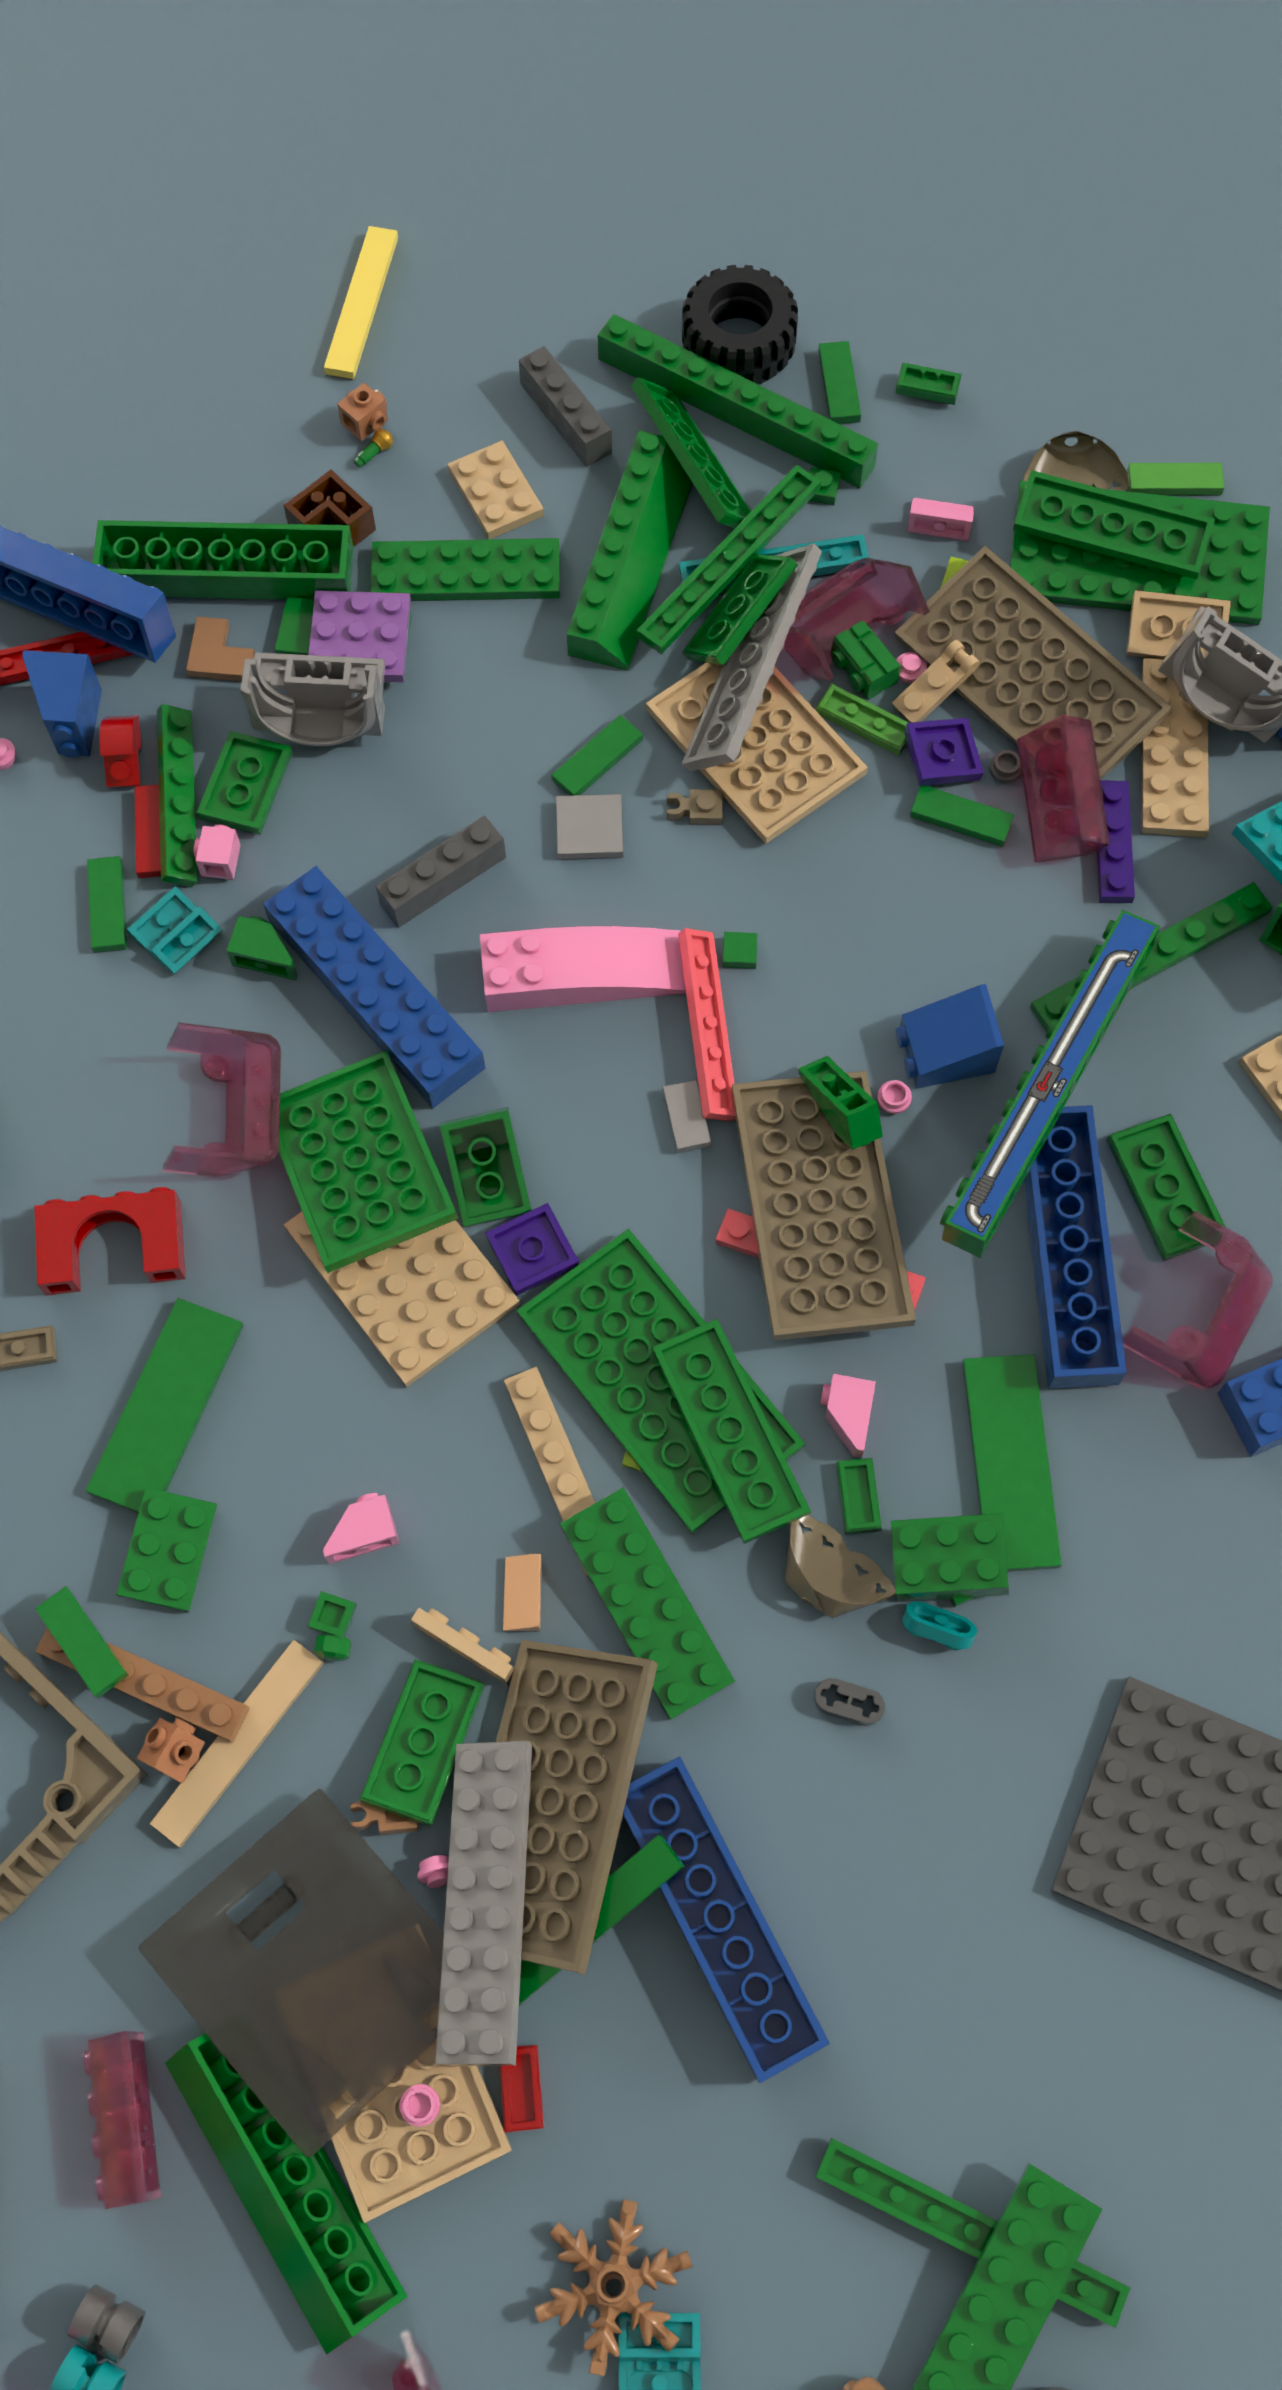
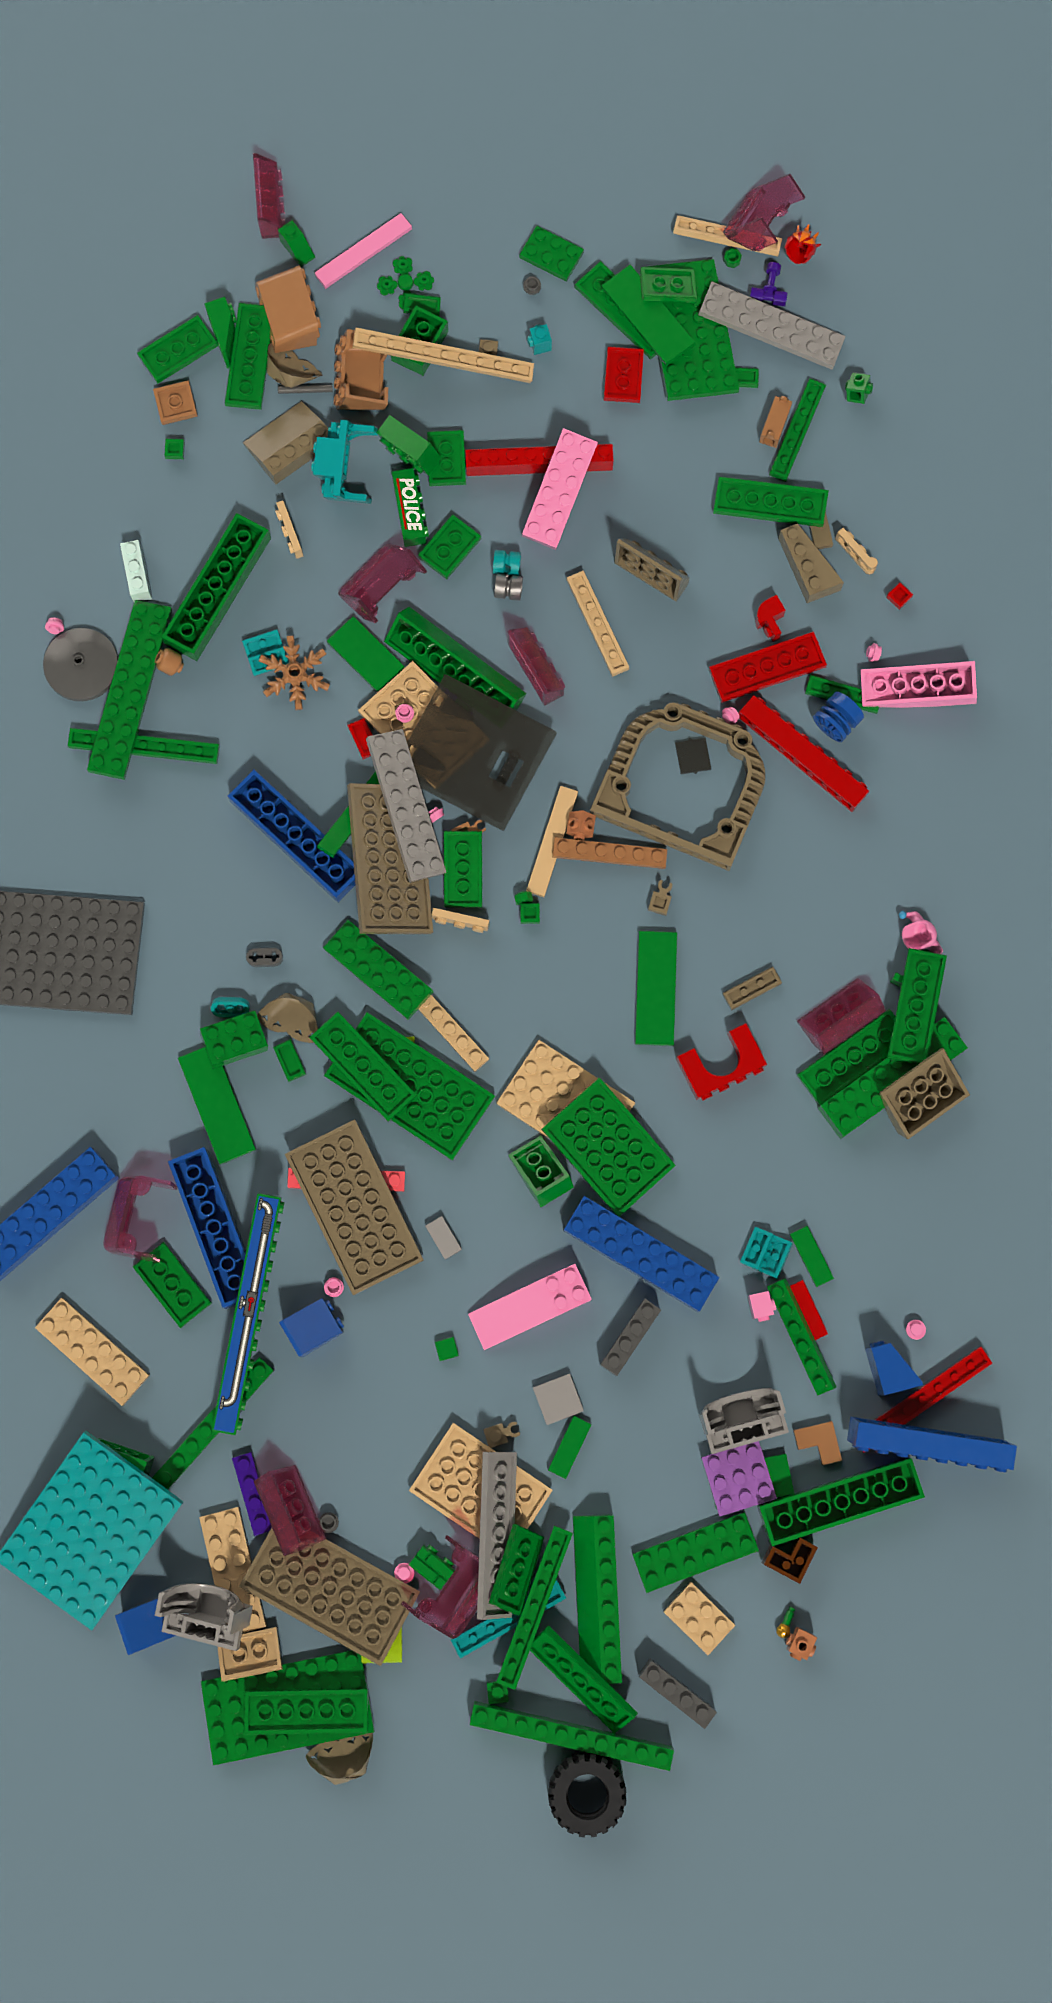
camera: 160 degrees right, 10 degrees up
(81, 1642) = (644, 857): green tile -> none
(89, 1557) = (660, 901): none -> dark tan plate
(119, 747) = (846, 1354): red brick -> none
(166, 1549) = (624, 917): green plate -> none
(244, 782) = (766, 1358): green plate -> none
(252, 1073) = (678, 1159): clear pink windscreen -> none
(259, 948) = (713, 1256): green slope -> none
(361, 302) = (840, 1737): light yellow tile -> none
(362, 1529) = (530, 959): bright pink slope -> none
(455, 2279) = (365, 654): none -> green tile
(522, 1593) = (441, 956): light nougat slope -> none
(532, 1249) = (499, 1133): dark purple plate -> none
(707, 1024) = (449, 1295): coral plate -> none
(839, 382) = (511, 1778): green tile -> none
(843, 1102) = (360, 1266): green slope -> none
(849, 1410) = (306, 1101): bright pink slope -> none
(863, 719) = (420, 1528): bright green tile -> none
(928, 383) = (453, 1795): green plate -> none
(935, 683) = (385, 1561): tan plate -> none
(940, 519) = (417, 1693): bright pink panel -> none
(943, 751) = (367, 1517): dark purple plate -> none
(962, 815) = (345, 1480): green tile -> none
(1176, 478) = (278, 1775): bright green tile -> none

